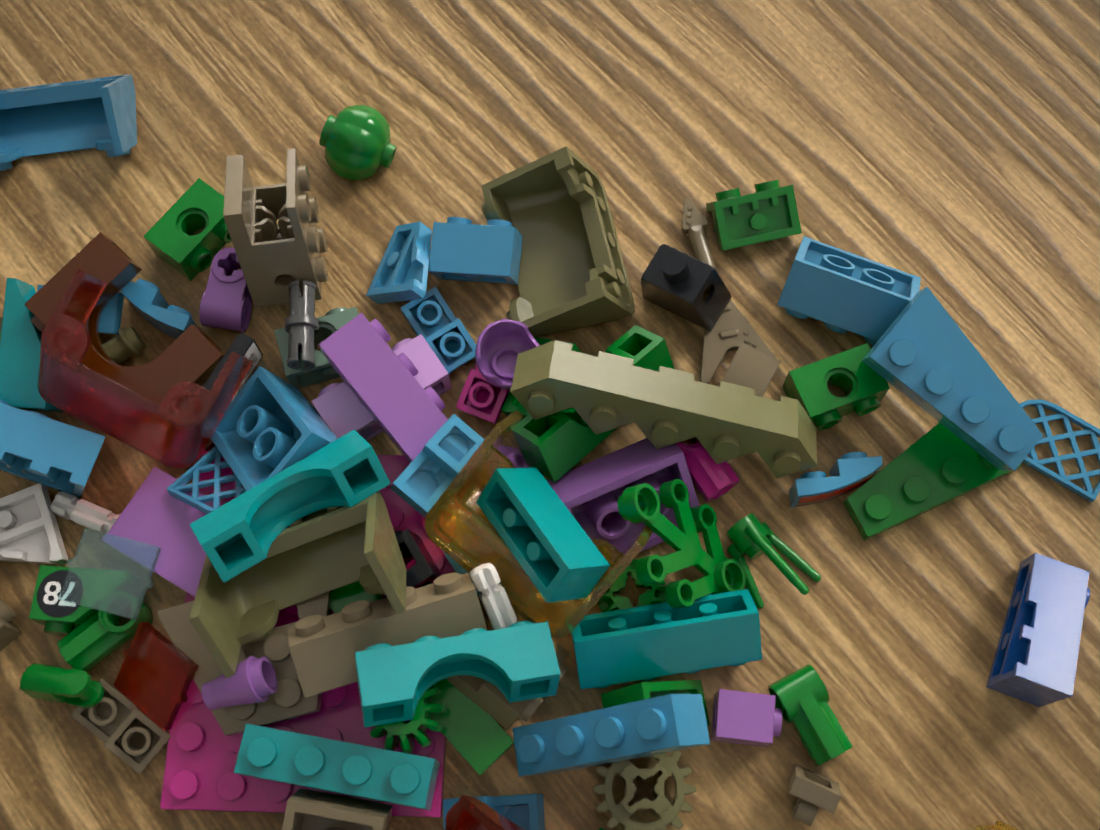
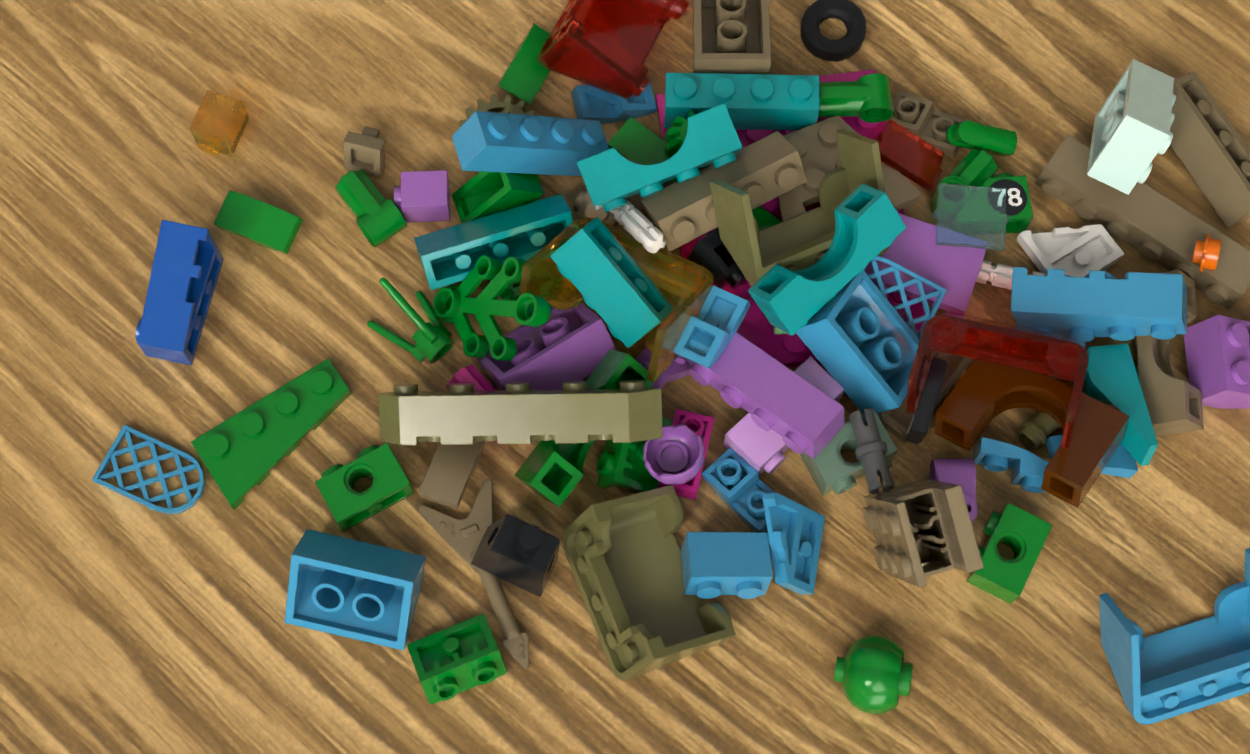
camera: 165 degrees right, 0 degrees up
(187, 751) = (865, 98): none -> green piece
(252, 683) = (821, 139): medium lavender cone -> none
(845, 475) = (346, 407): dark azure slope -> none
(948, 715) = (258, 222): none -> green slope
(949, 379) = (263, 478): dark azure wedge -> none

